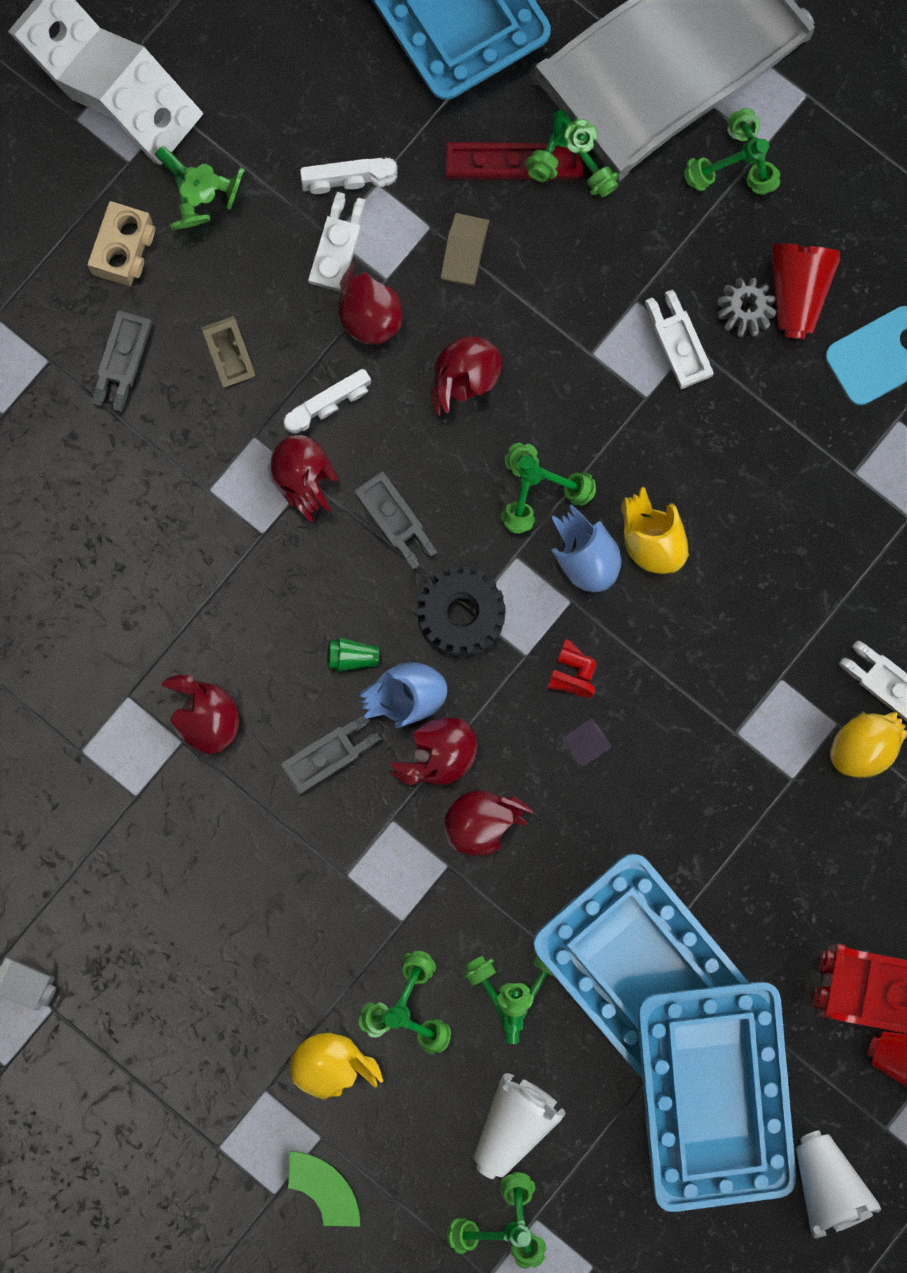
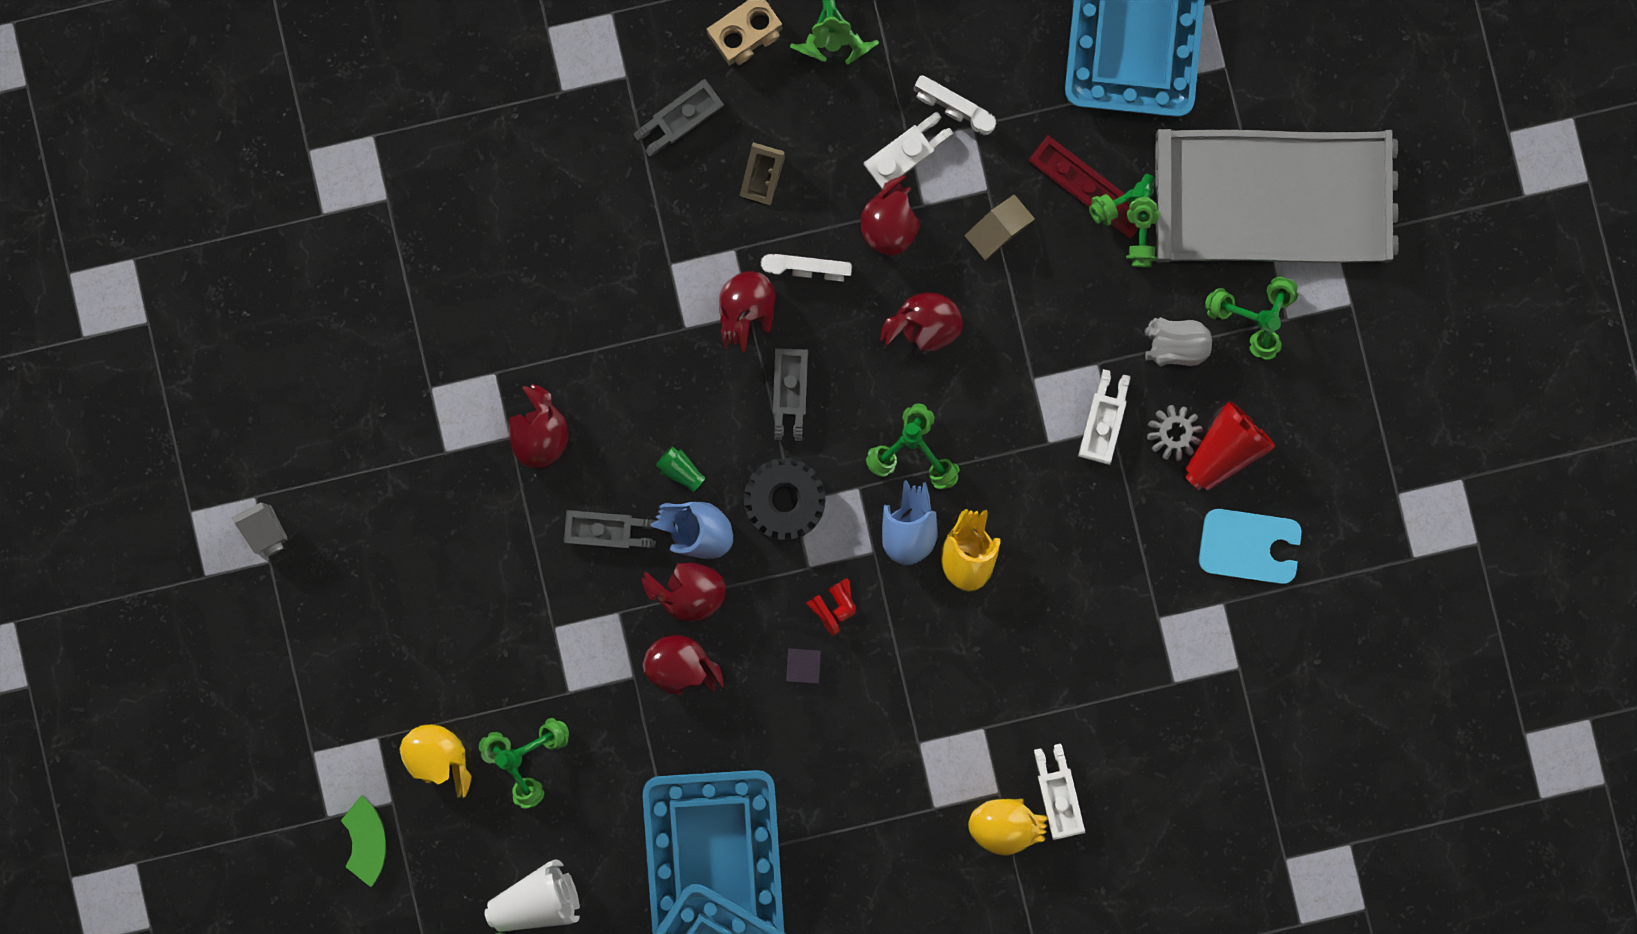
camera: 40 degrees right, 5 degrees up
(513, 997) = (601, 811): bright green plant -> none
(690, 229) = (1178, 342): none -> light grey piece

